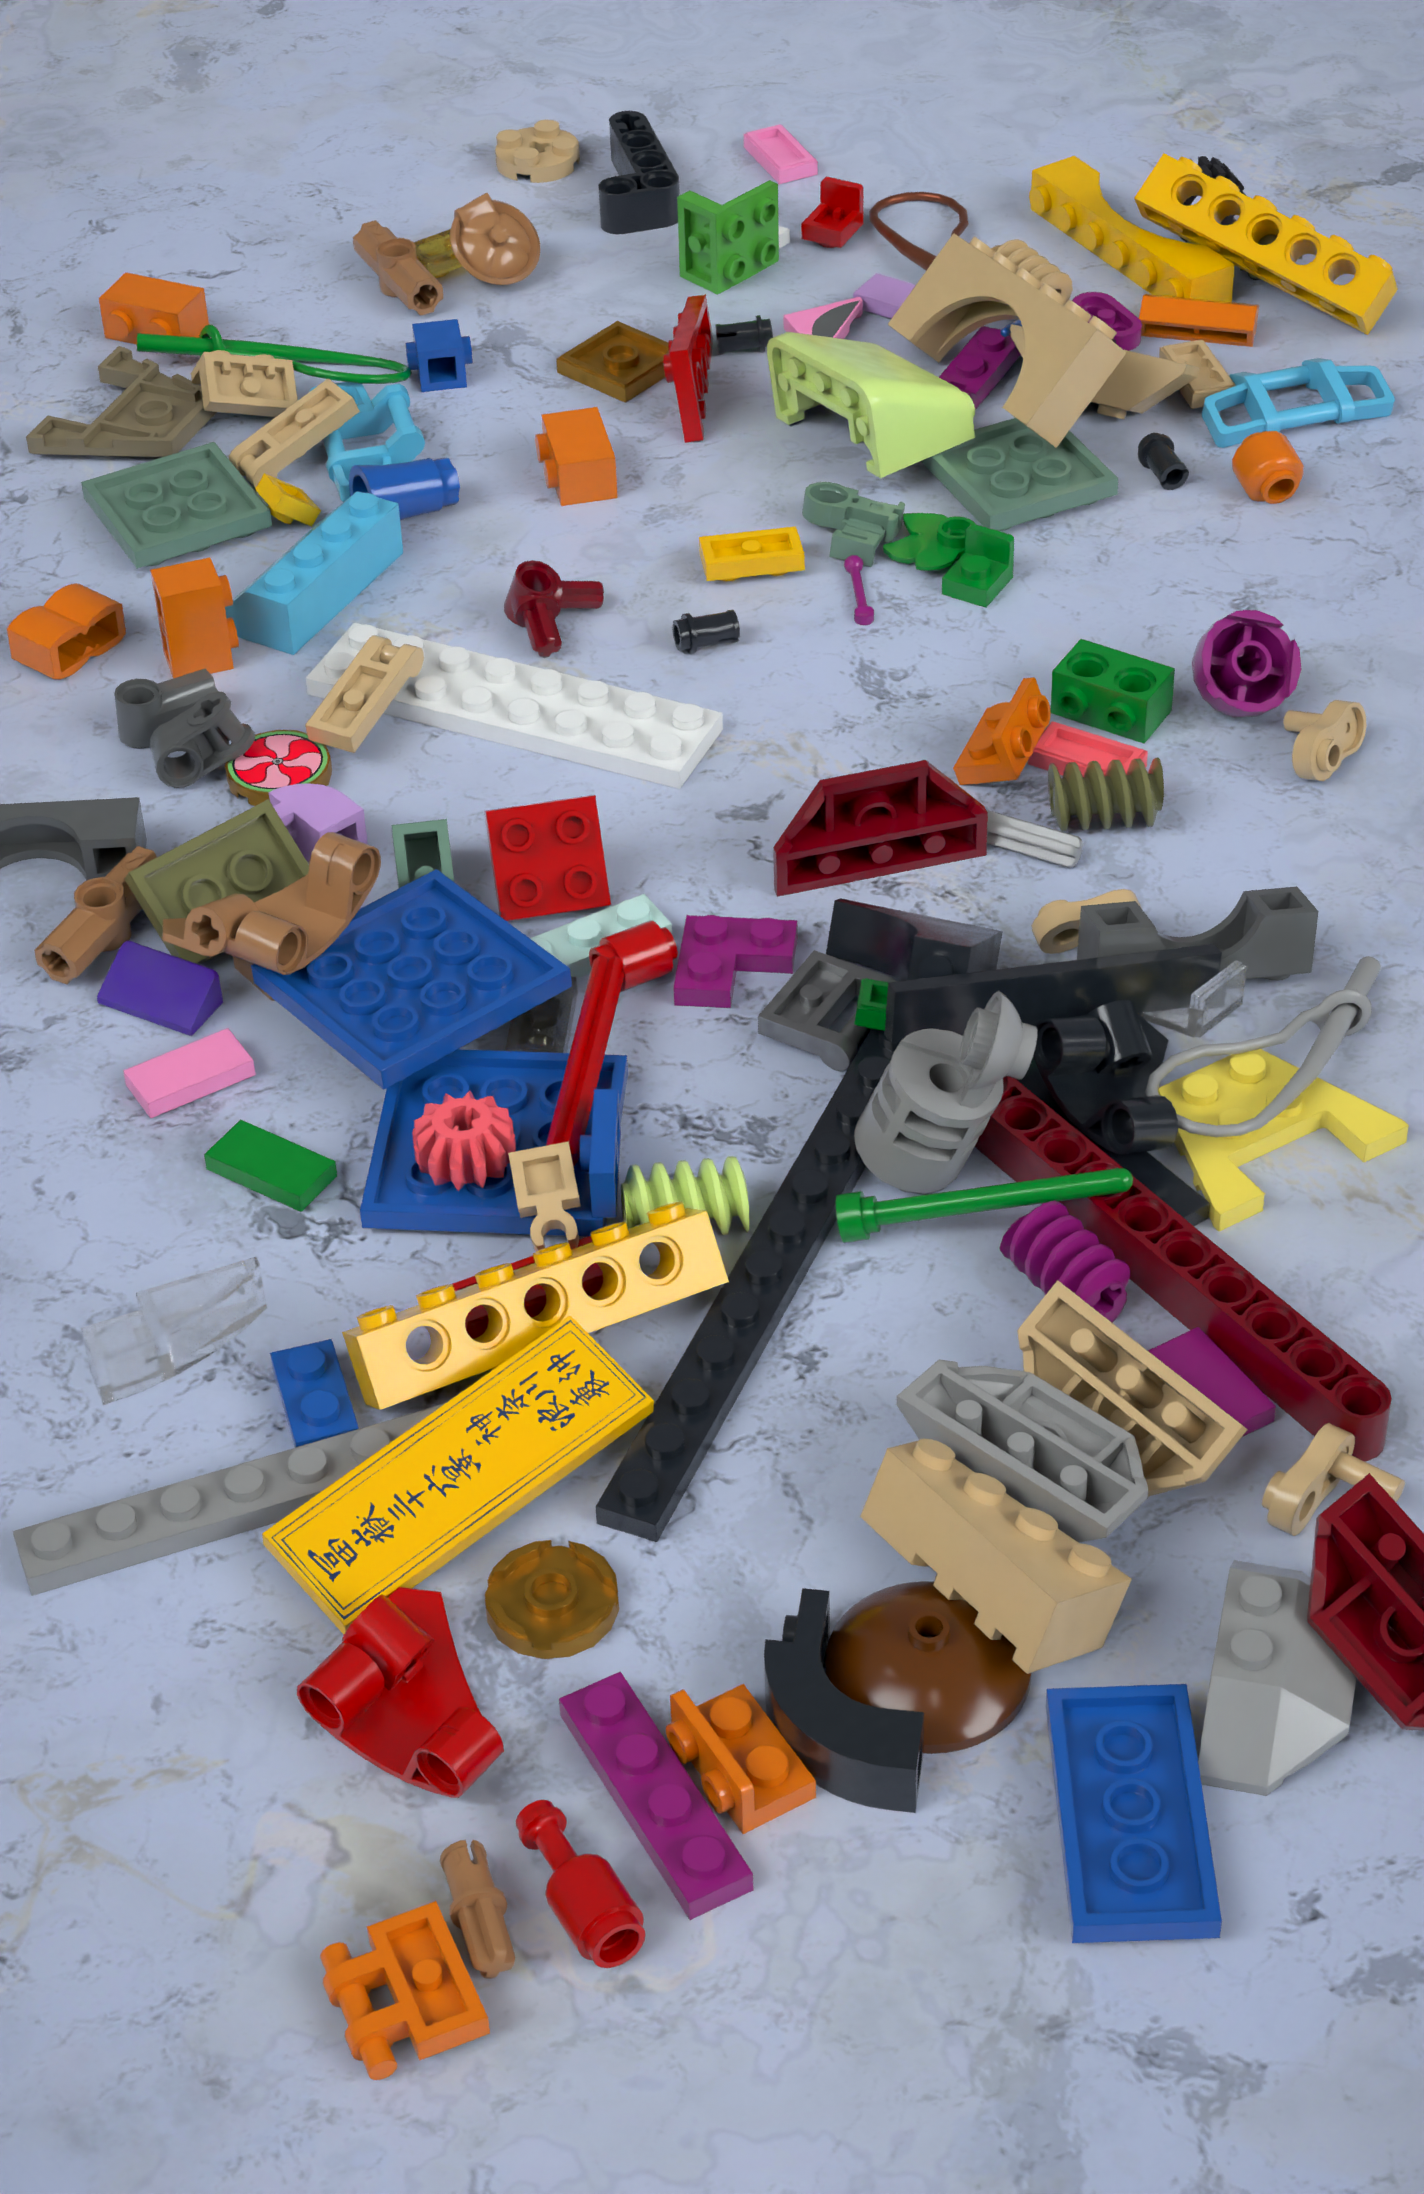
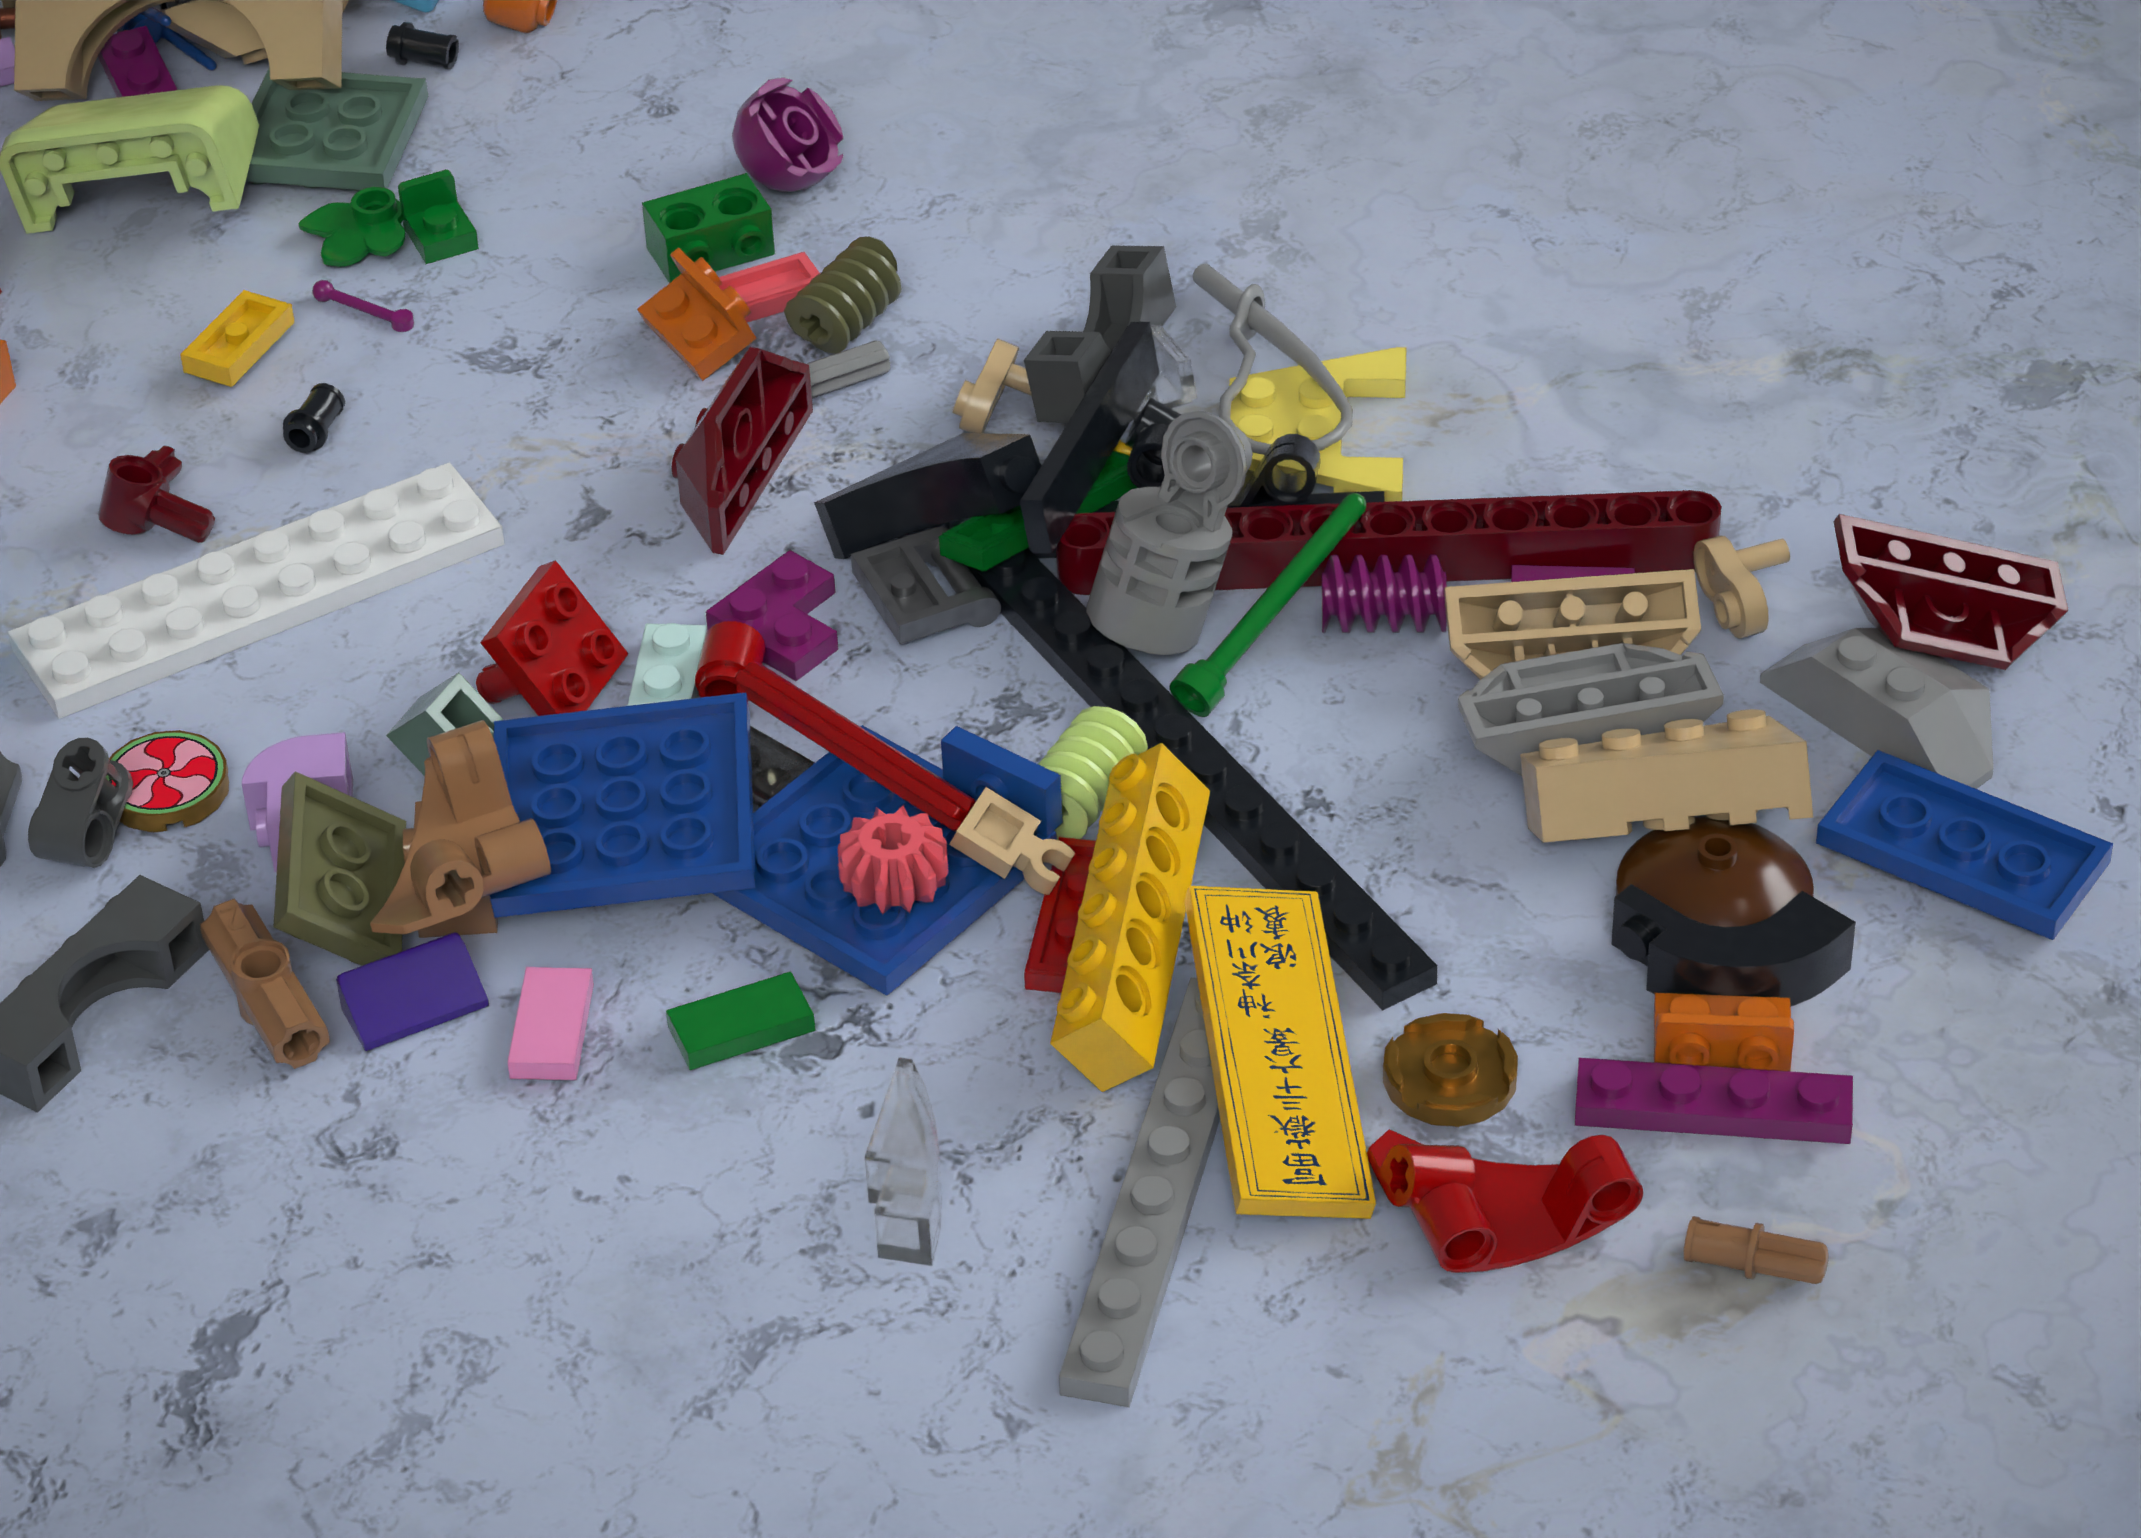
camera: 55 degrees left, 0 degrees up
(313, 1392) = (1073, 1115): blue plate -> none
(363, 693) = (159, 662): tan plate -> none
(426, 1980) = (1802, 1313): orange plate -> none
(583, 1890) = (1795, 1178): red piece -> none
(857, 520) = (287, 245): sand green piece -> none
(1325, 737) = (927, 158): tan piece -> none

